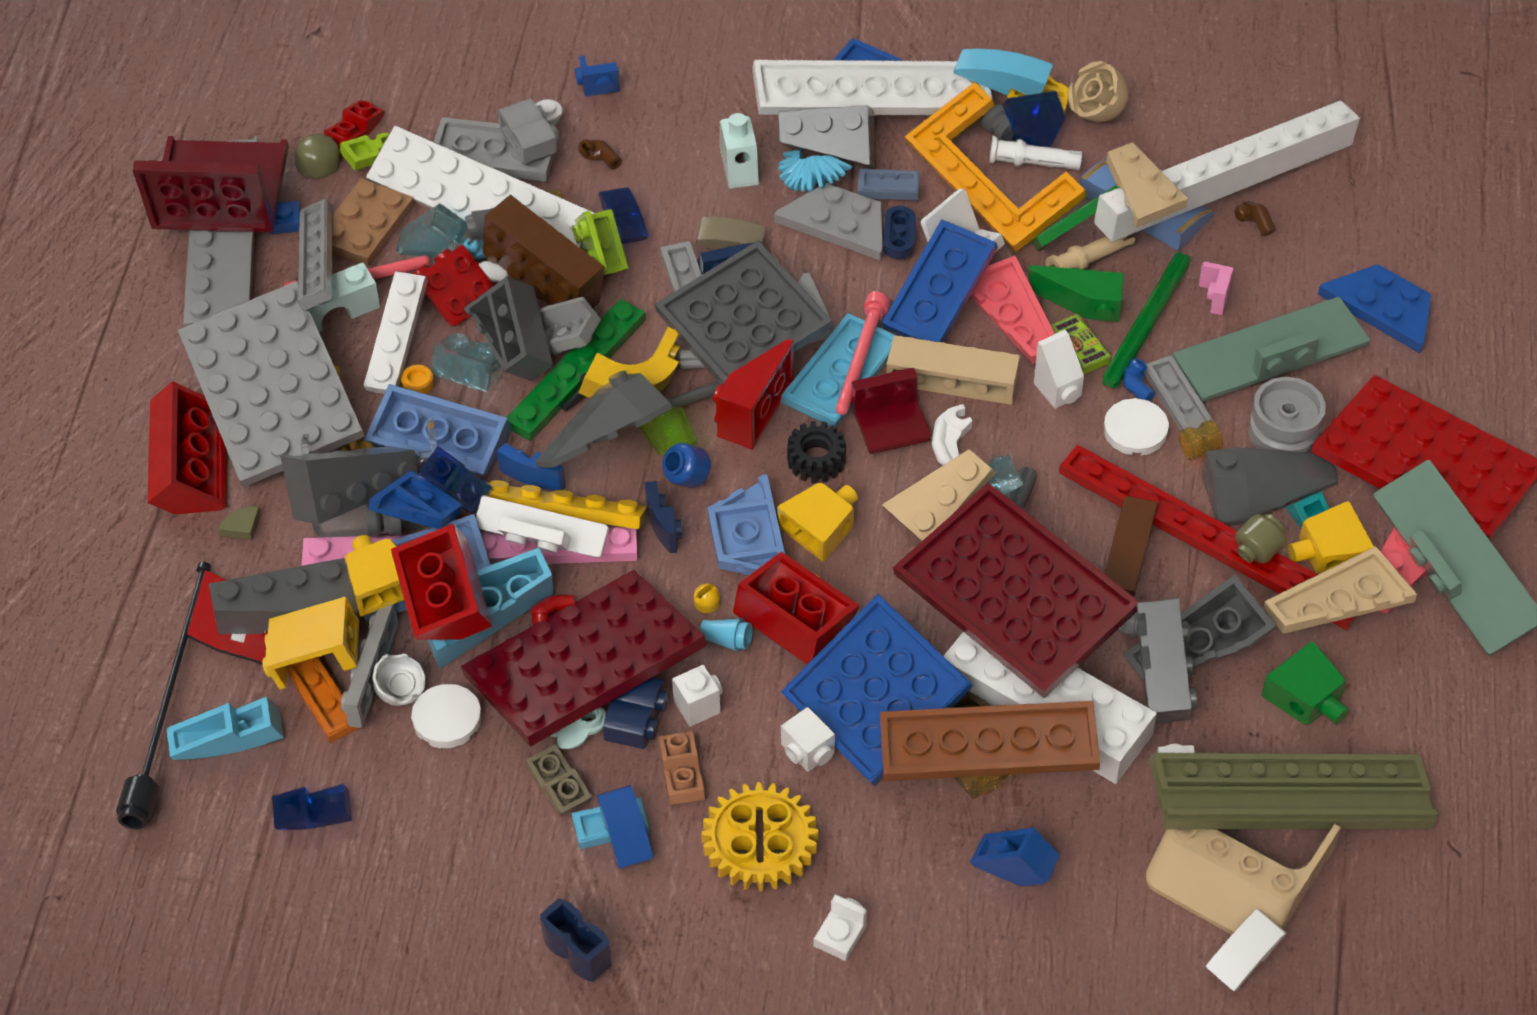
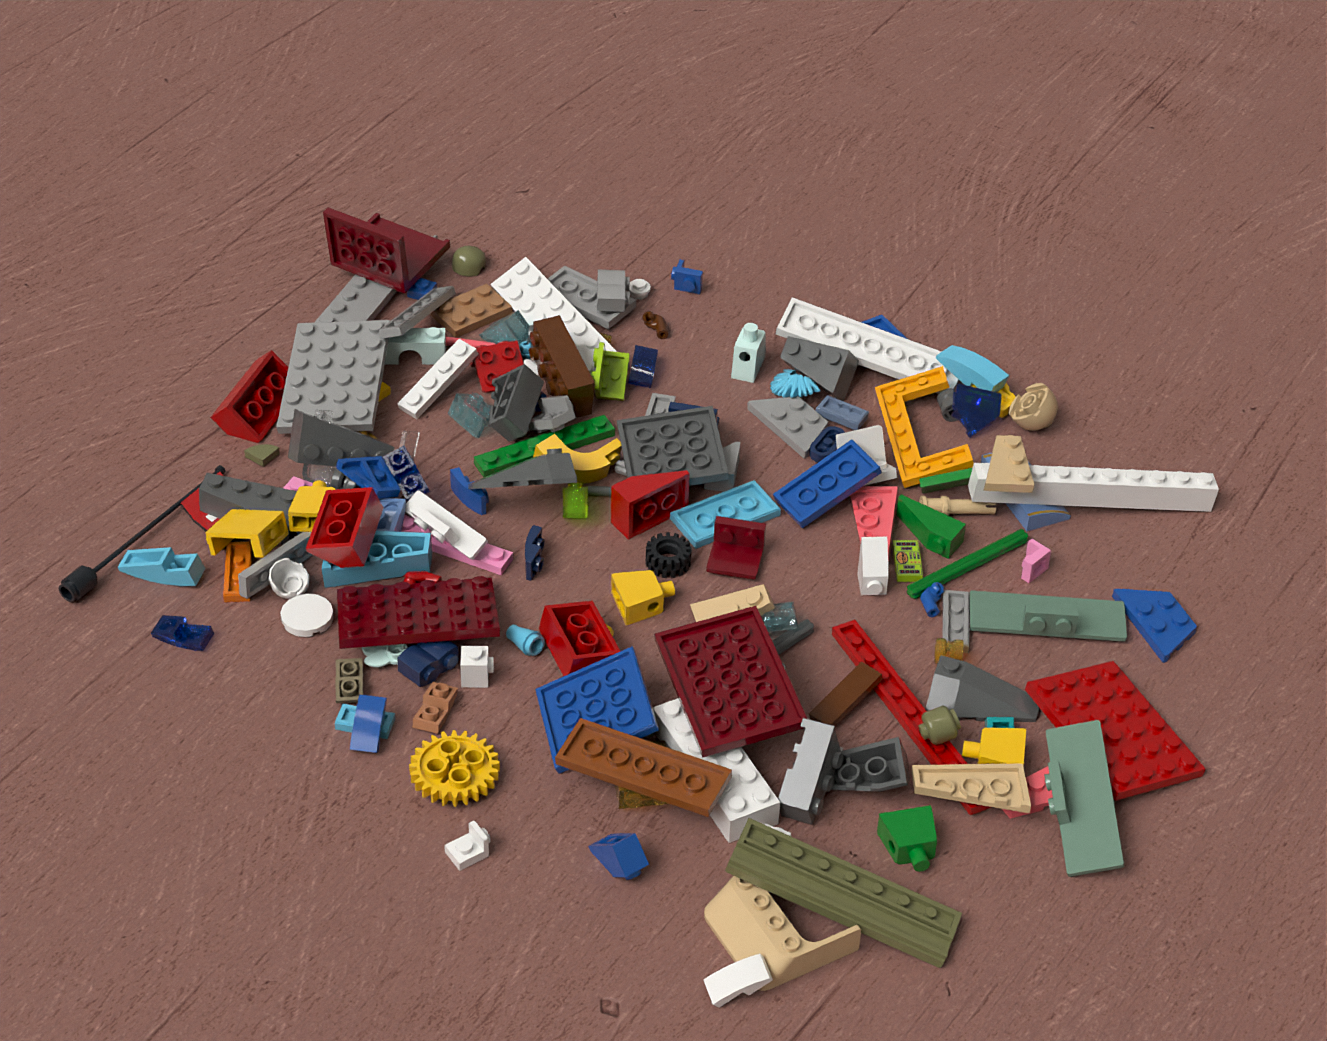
camera: 25 degrees right, 10 degrees down
(356, 121) = (509, 251): red slope -> none
(362, 151) = (497, 267): lime plate -> none
(418, 379) = (436, 414): light orange tile -> none
(460, 430) = (435, 449): medium blue slope -> none
(575, 940) = (285, 775): dark blue brick -> none
(591, 508) = (489, 529): yellow plate -> none
(686, 465) = (570, 527): blue head -> none
(710, 598) = (529, 614): yellow hinge -> none
(724, 232) = (704, 397): dark tan slope -> none
(745, 529) = (585, 580): medium blue wing -> none
(807, 740) = (529, 723): white brick -> none
(875, 307) = (773, 483): coral piece -> none
(948, 431) = (775, 576): white piece -> none
(956, 369) = (804, 541): tan brick -> none
(1021, 153) = (951, 427): white pin -> none
(1136, 426) = (909, 627): white tile -> none
(1256, 213) = (1101, 528): reddish brown arm -> none
(1286, 415) = (1020, 656): light grey wheel -> none

